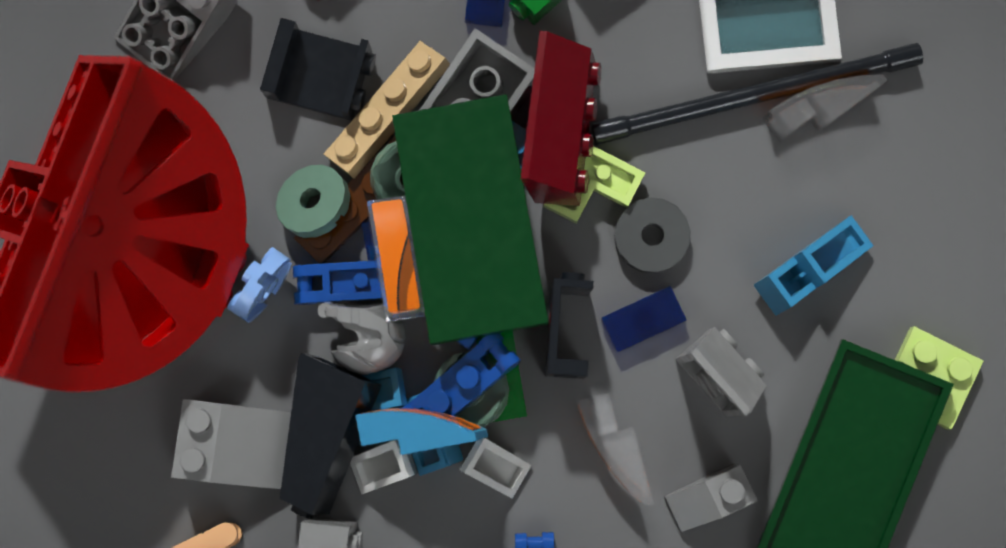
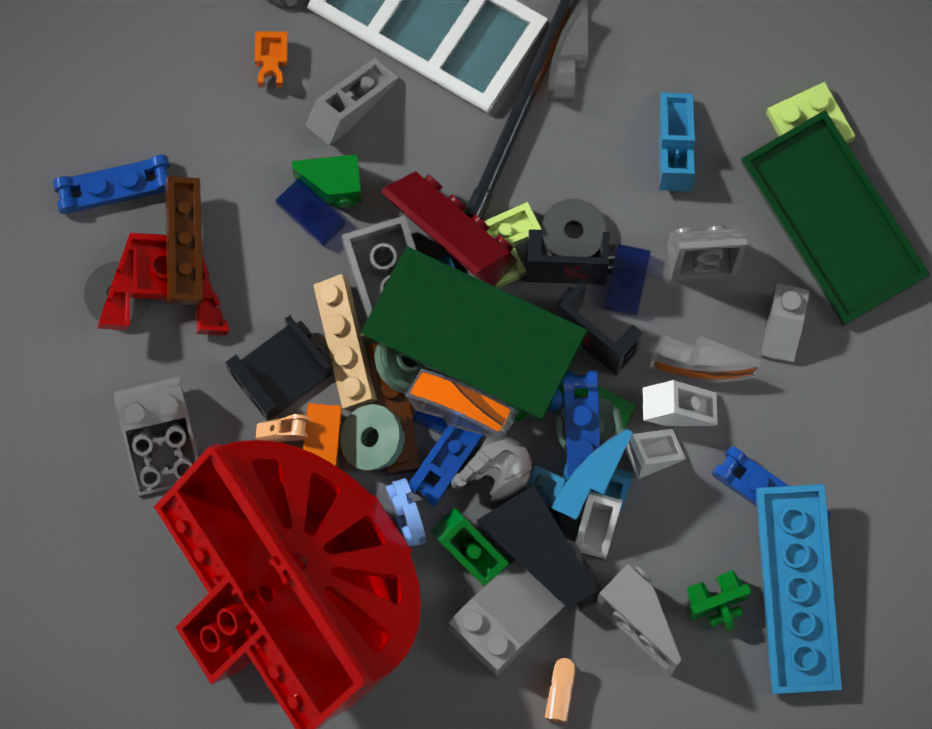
camera: 55 degrees left, 10 degrees down
(257, 115) = (283, 429): none -> light nougat bar
(273, 363) = (469, 547): none -> green slope
(275, 160) = (324, 431): none -> orange brick
(555, 457) = (679, 405): none -> white slope
(585, 227) = (568, 268): none -> black panel

